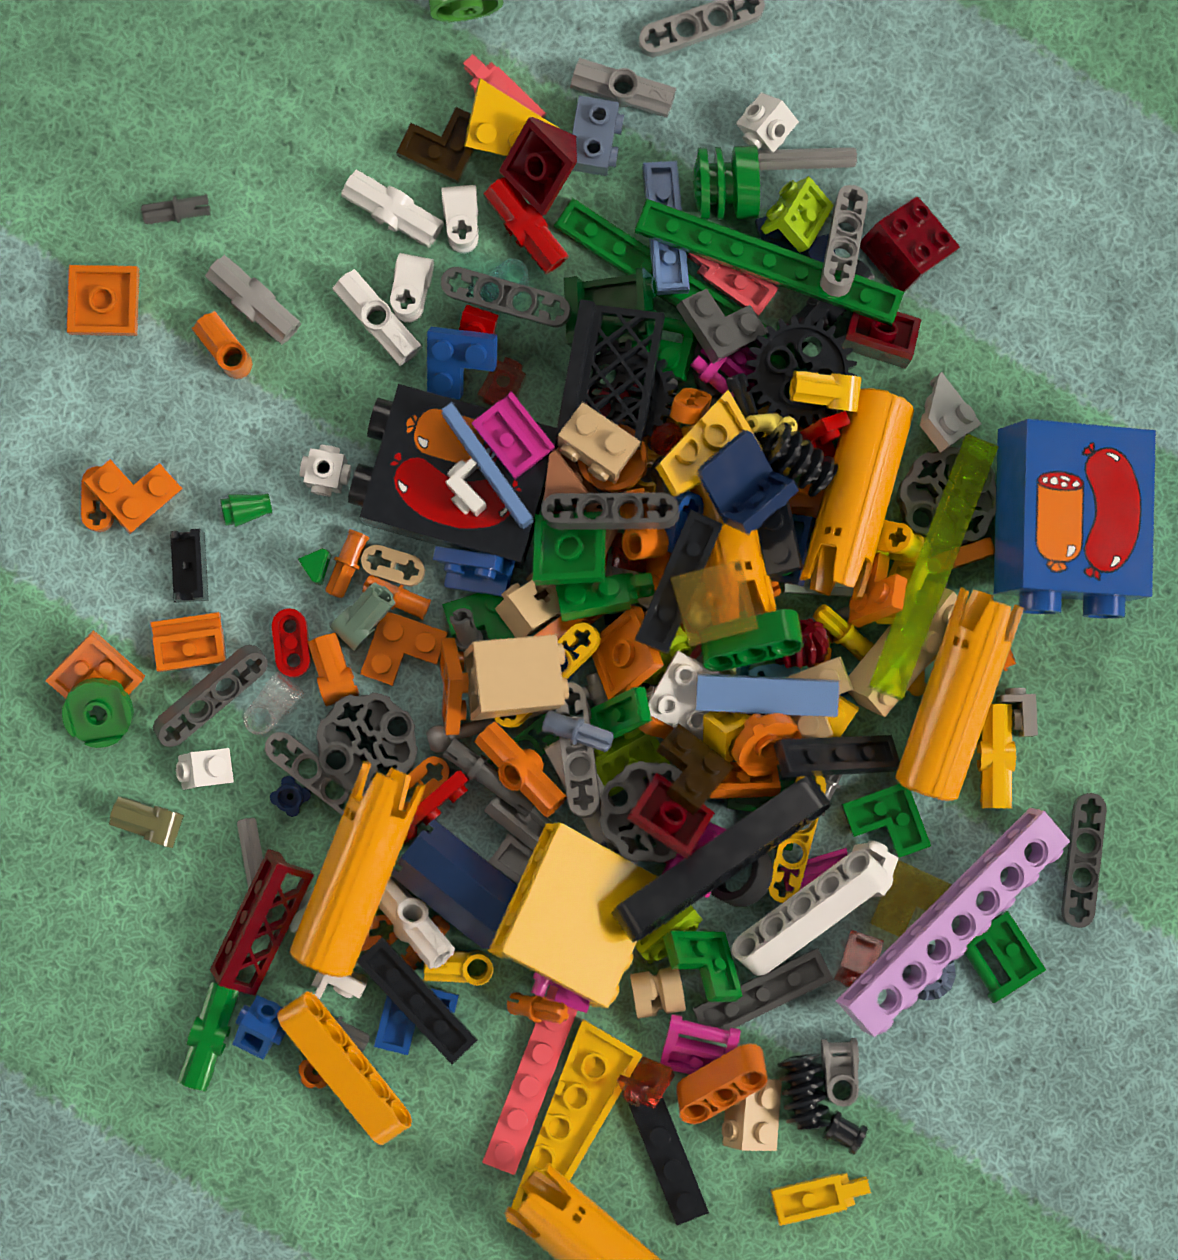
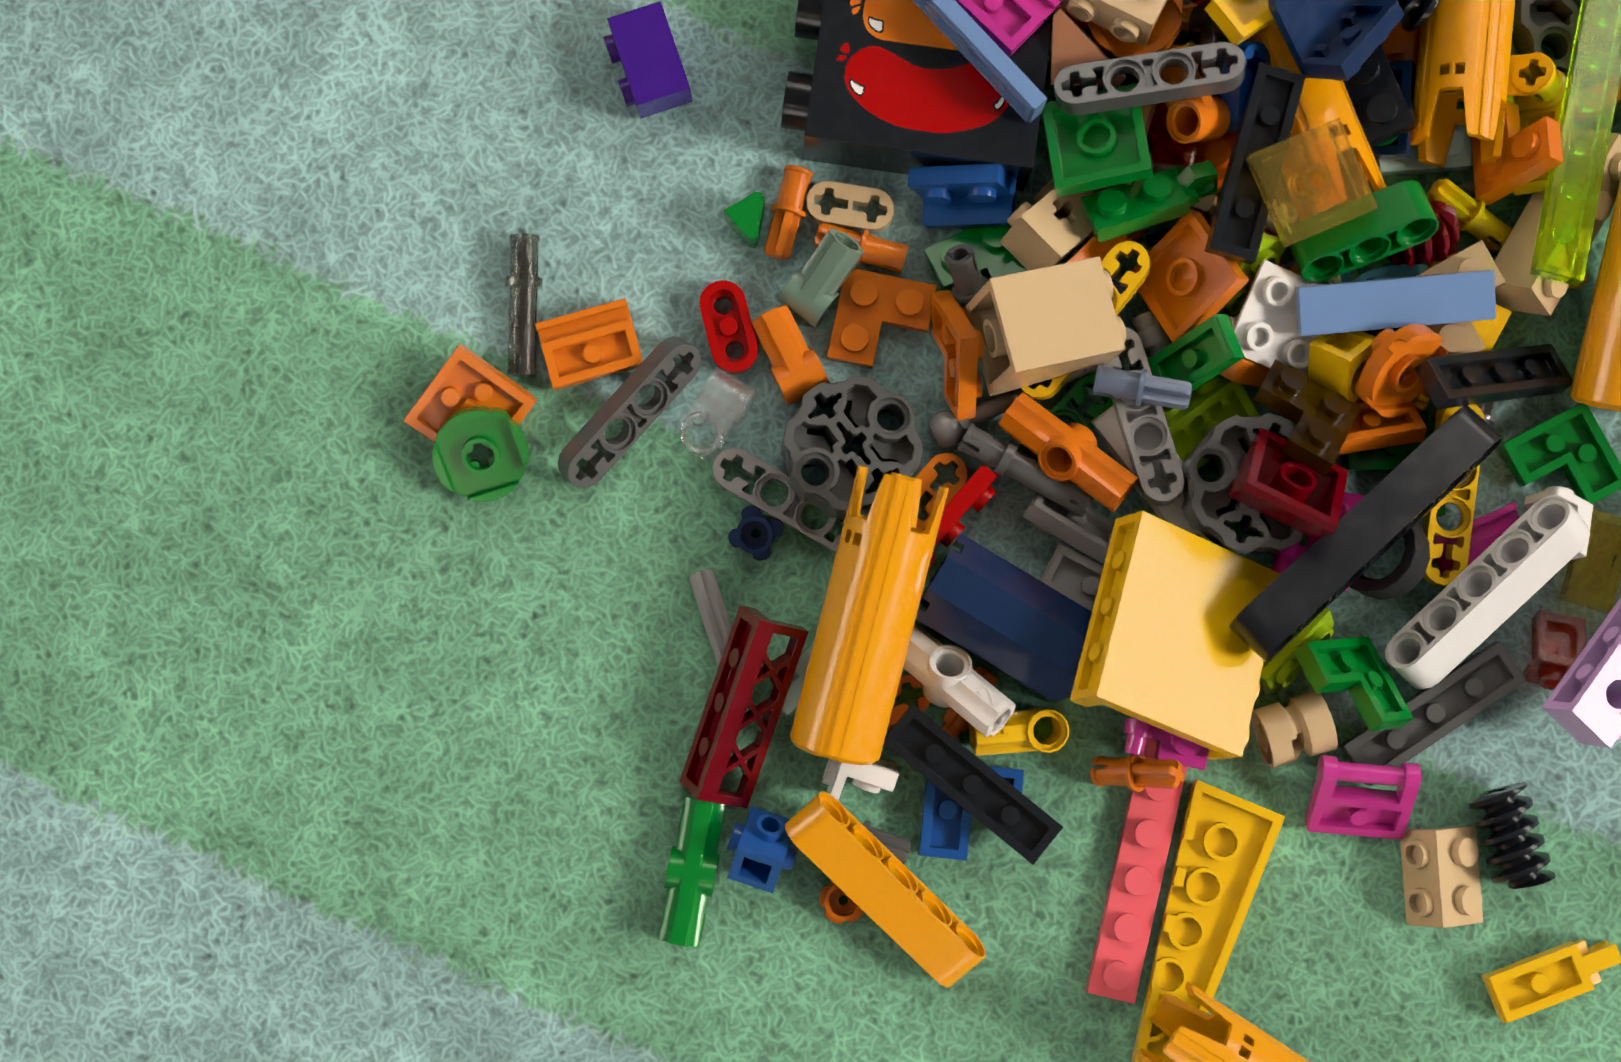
camera: 10 degrees left, 0 degrees up
(88, 506) = (451, 169): orange beam -> none
(128, 502) = (484, 167): orange plate -> none
(144, 606) = (523, 304): none -> clear smoke pin
(154, 823) = (577, 594): olive piece -> none
(189, 566) = (575, 243): black hinge -> none
(204, 768) = (635, 511): white bracket -> none
(244, 508) = (639, 156): green cone -> none
(259, 439) = (649, 59): none -> dark purple brick
(332, 480) = (745, 105): white brick -> none
(464, 496) = (947, 84): white bracket -> none
(646, 1083) = (1297, 854): clear red bracket -> none
(669, 1161) = (1334, 945): black plate -> none
(721, 1083) = (1403, 840): orange beam -> none
(840, 1068) = (1556, 798): light grey piece -> none
(845, 1132) = (1574, 885): black bush -> none

